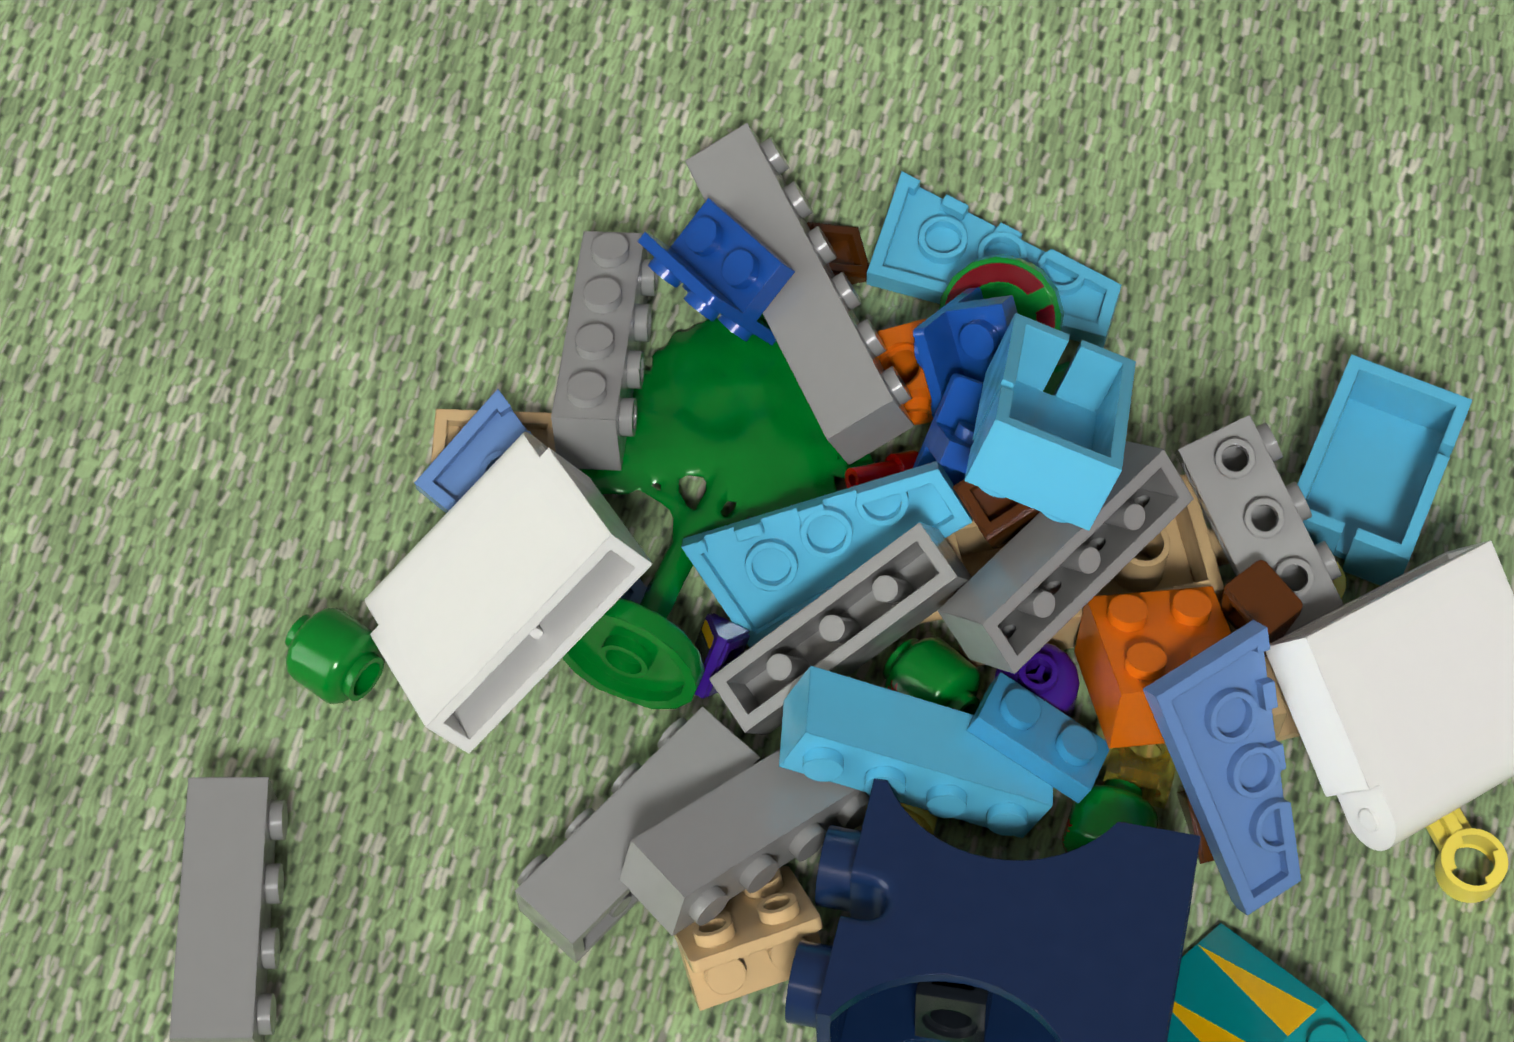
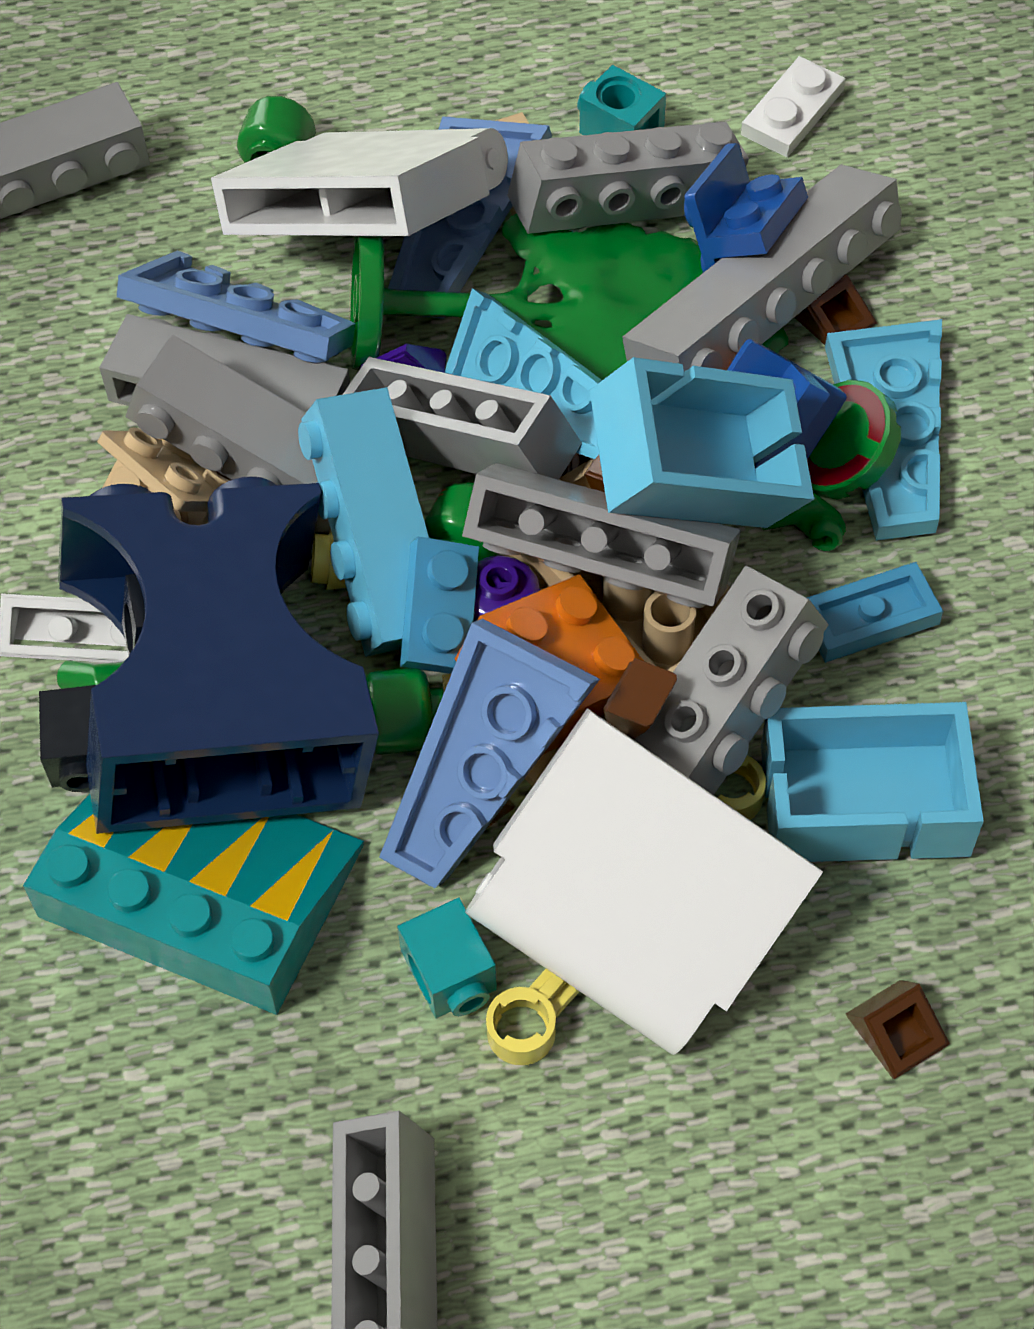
camera: 65 degrees right, 5 degrees down
(488, 298) = (620, 104): none -> teal brick
(557, 168) = (792, 106): none -> white plate
(566, 779) = (215, 304): none -> medium blue wing
(1183, 386) = (876, 611): none -> dark azure plate
(1389, 896) = (448, 959): none -> teal brick

